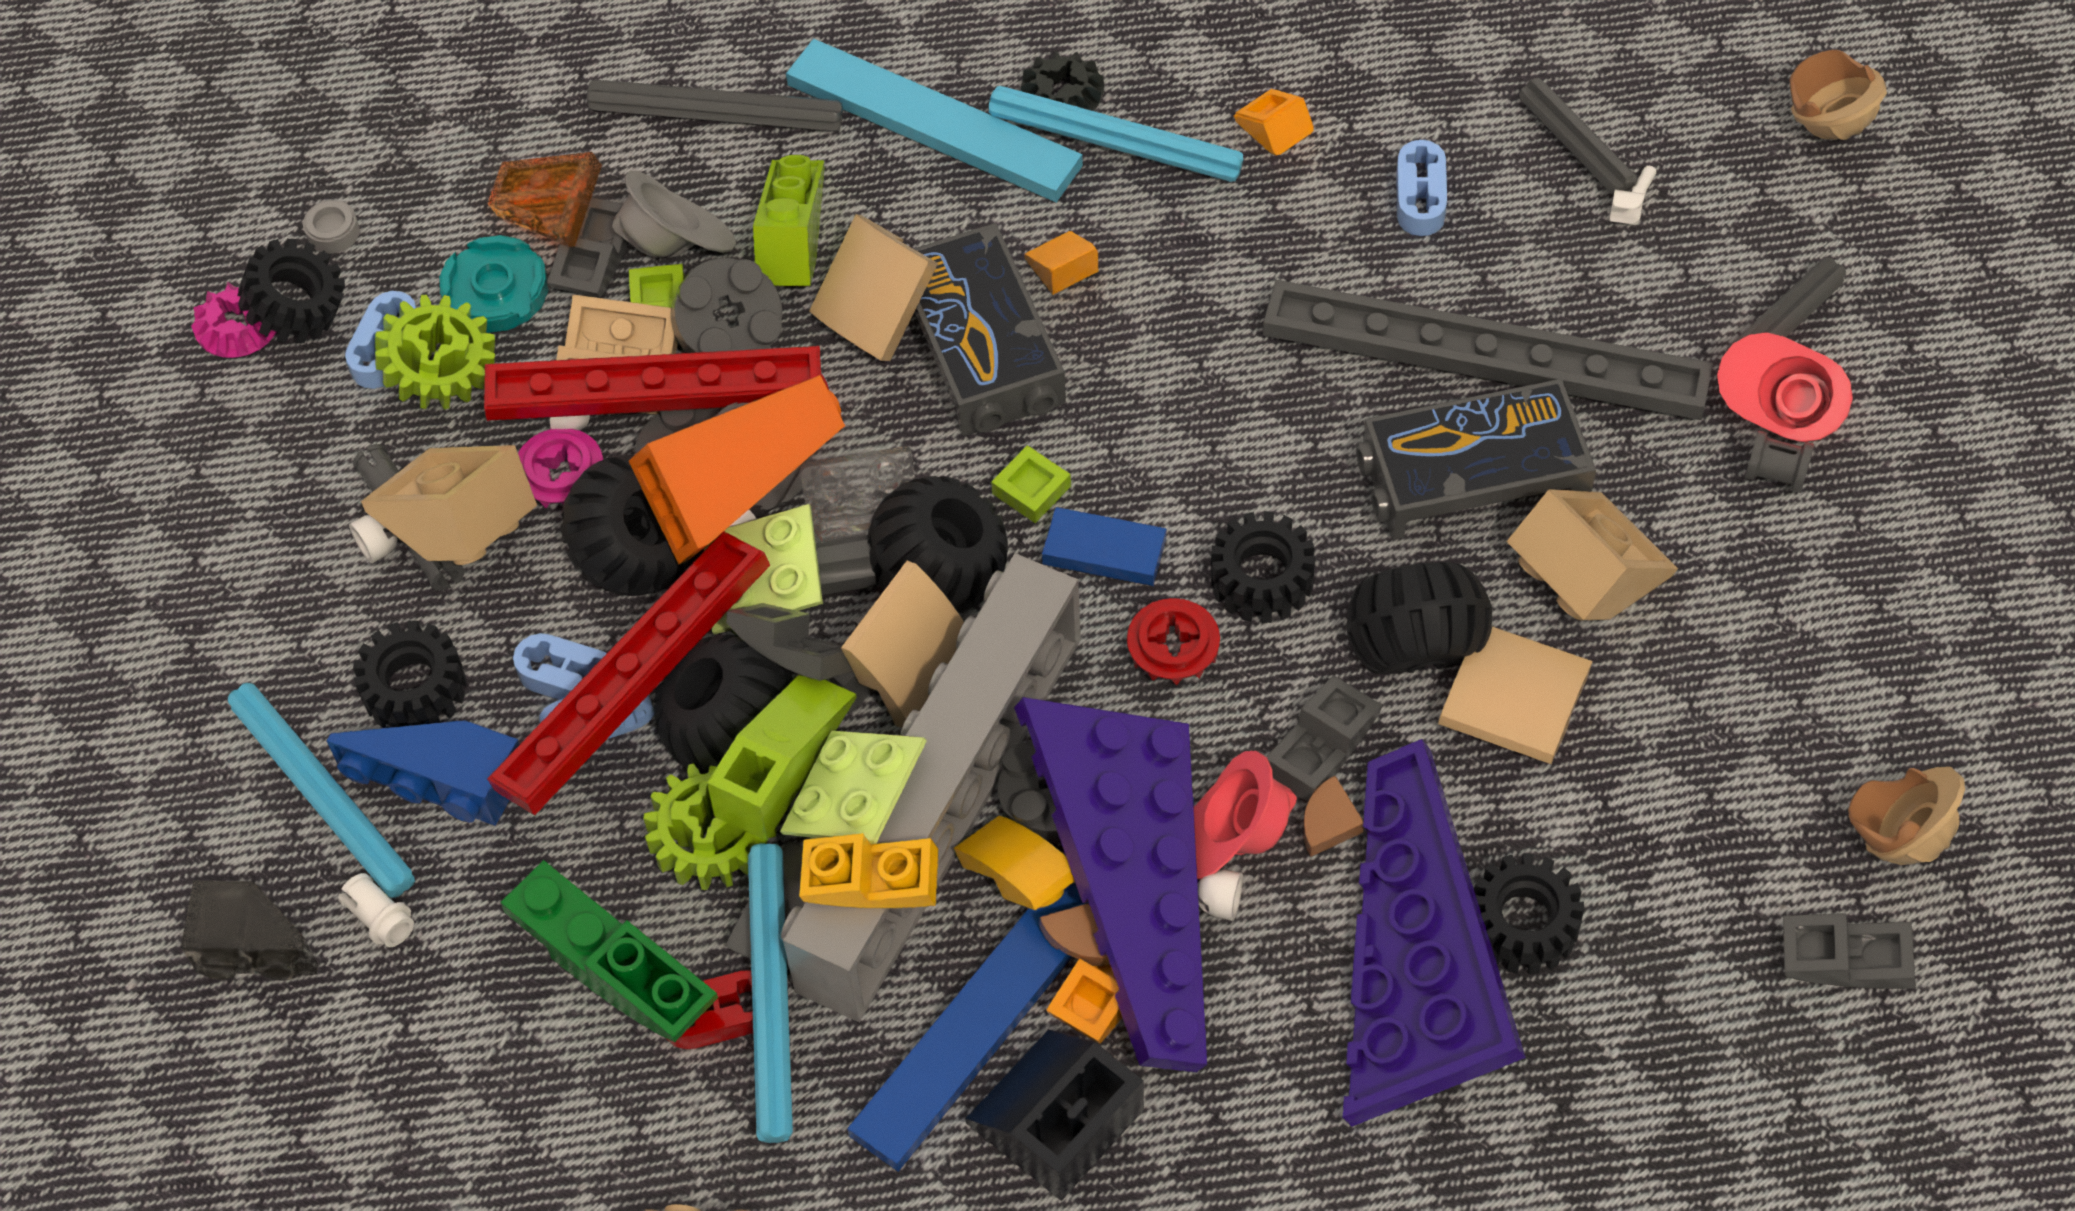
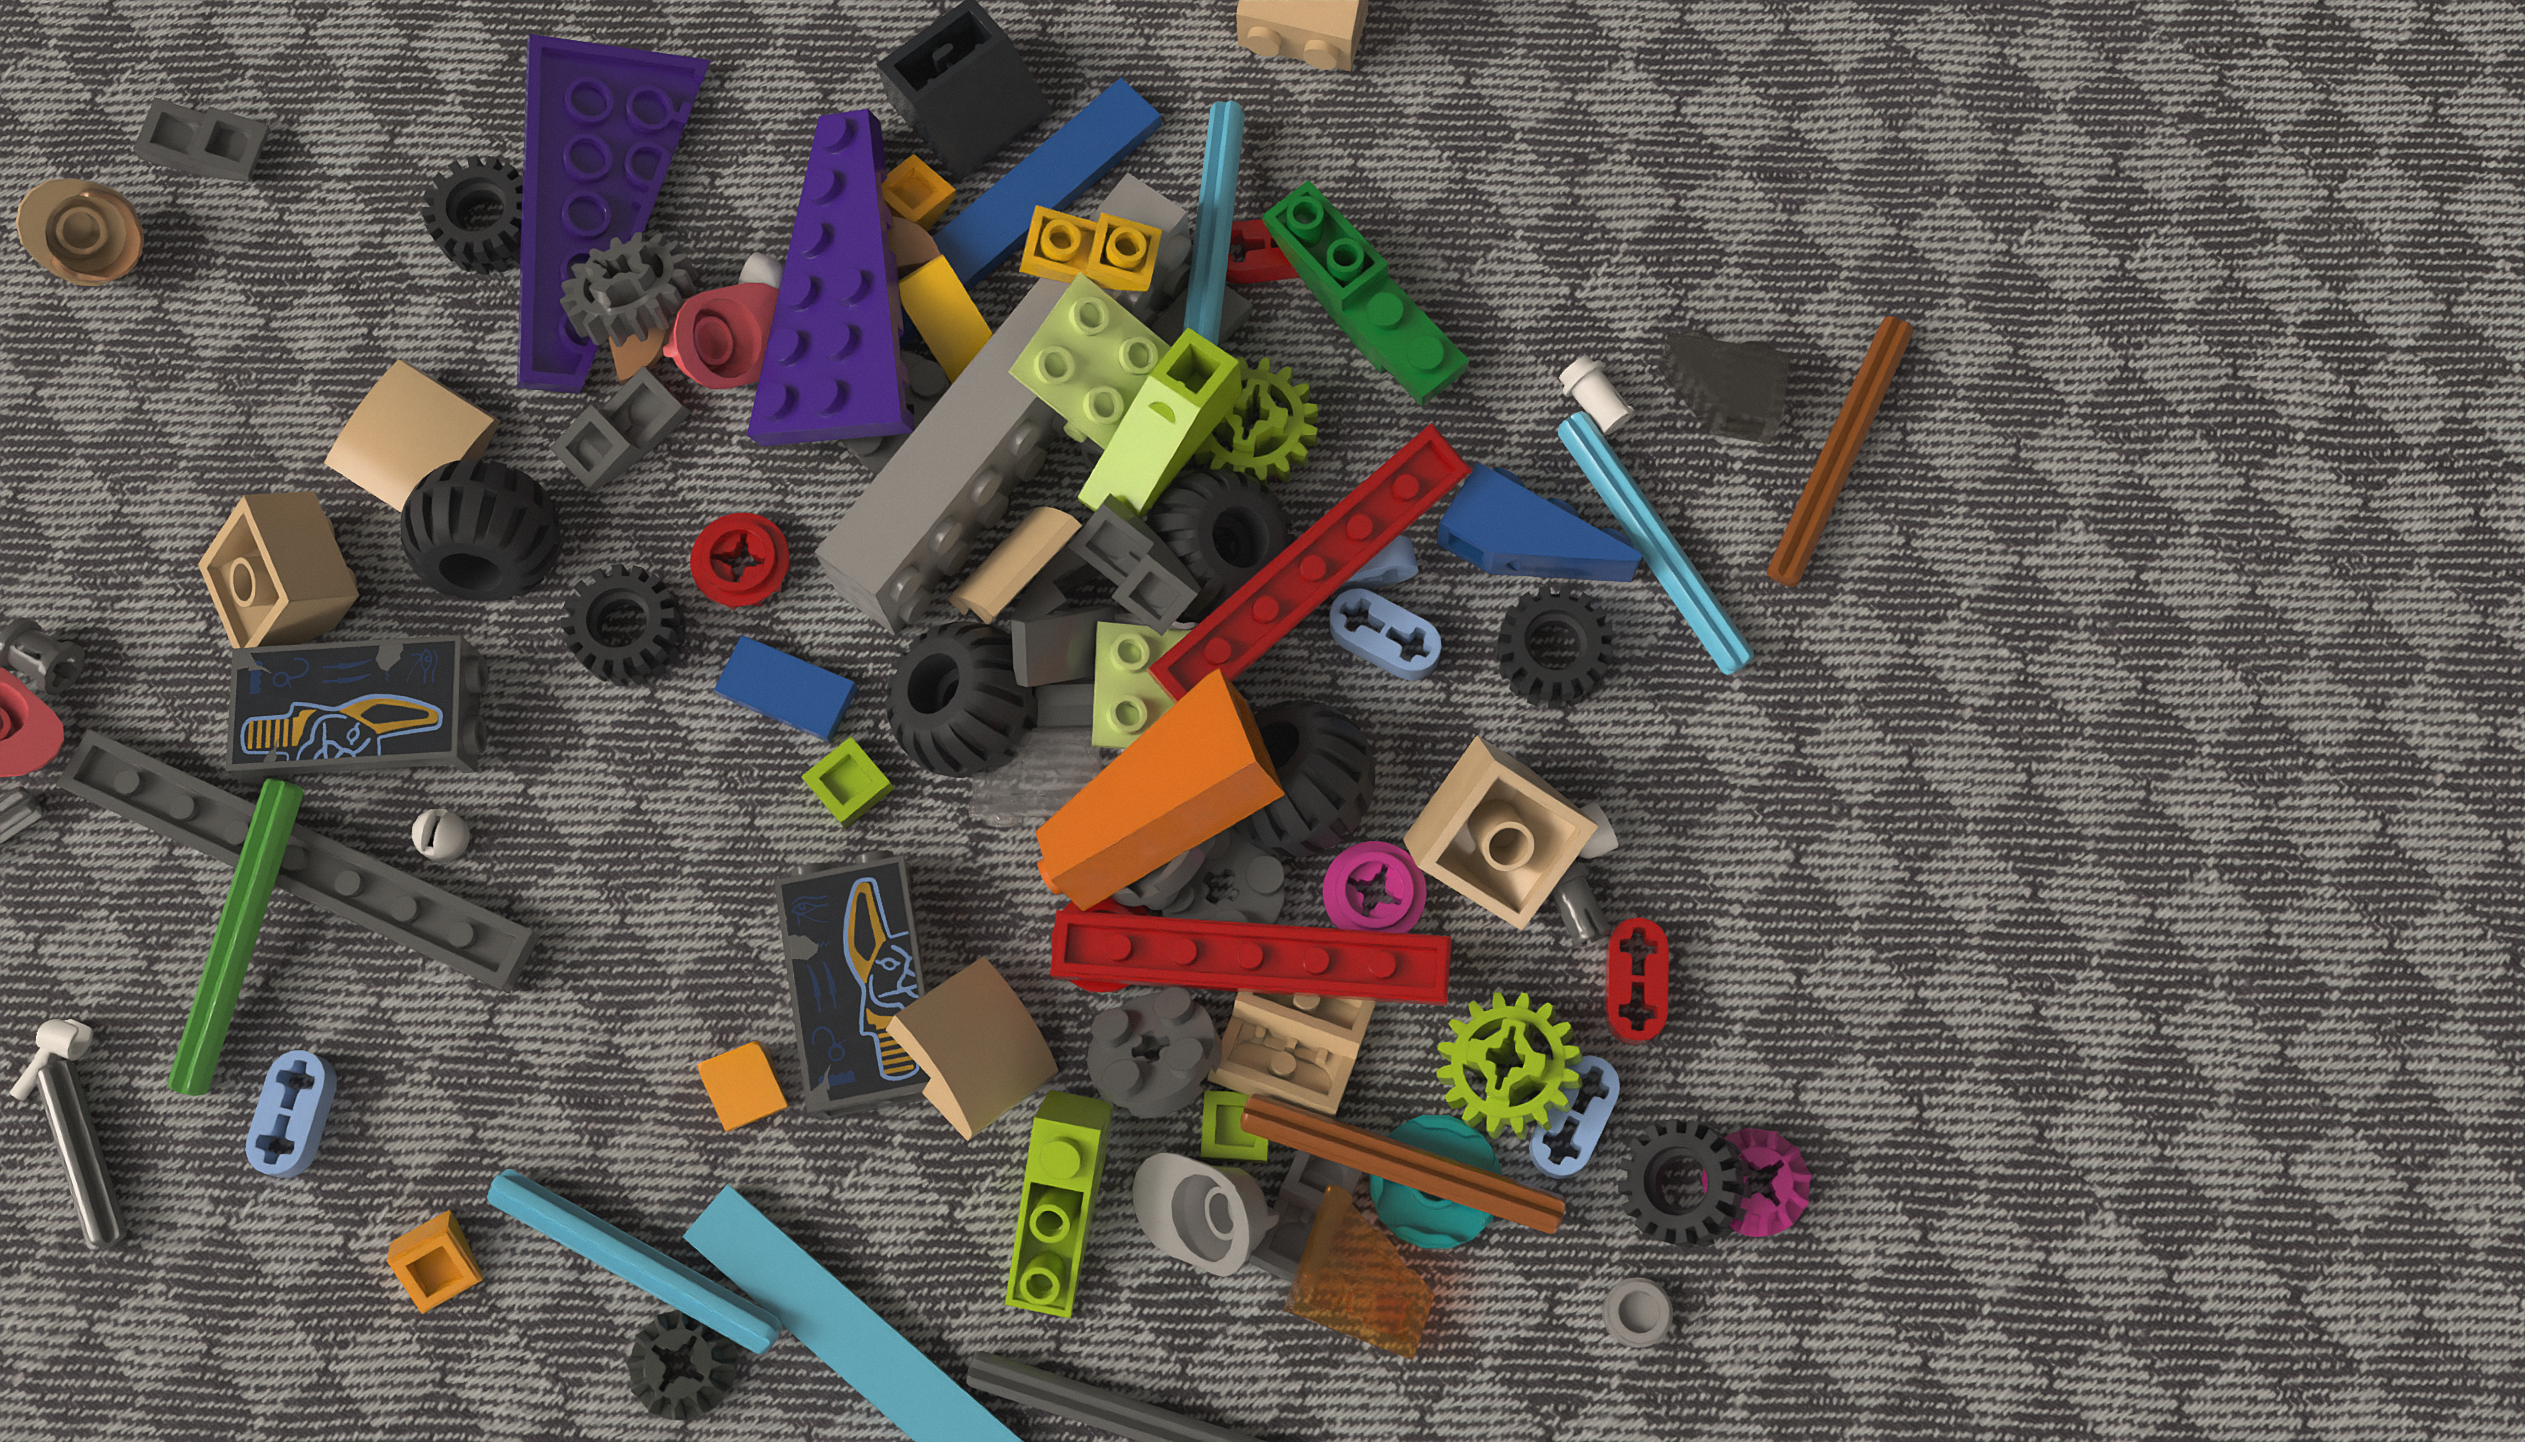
camera: 170 degrees left, 15 degrees up
(136, 902) = (1840, 452): none -> dark orange axle
(321, 439) = (1652, 981): none -> red beam
(518, 272) = (1403, 1163): none -> dark orange axle
(841, 585) = (1057, 645): none -> dark grey slope
(1312, 816) = (628, 289): none -> dark grey gear
(1360, 393) = (450, 835): none -> white hinge
(1507, 281) = (235, 937): none -> bright green axle

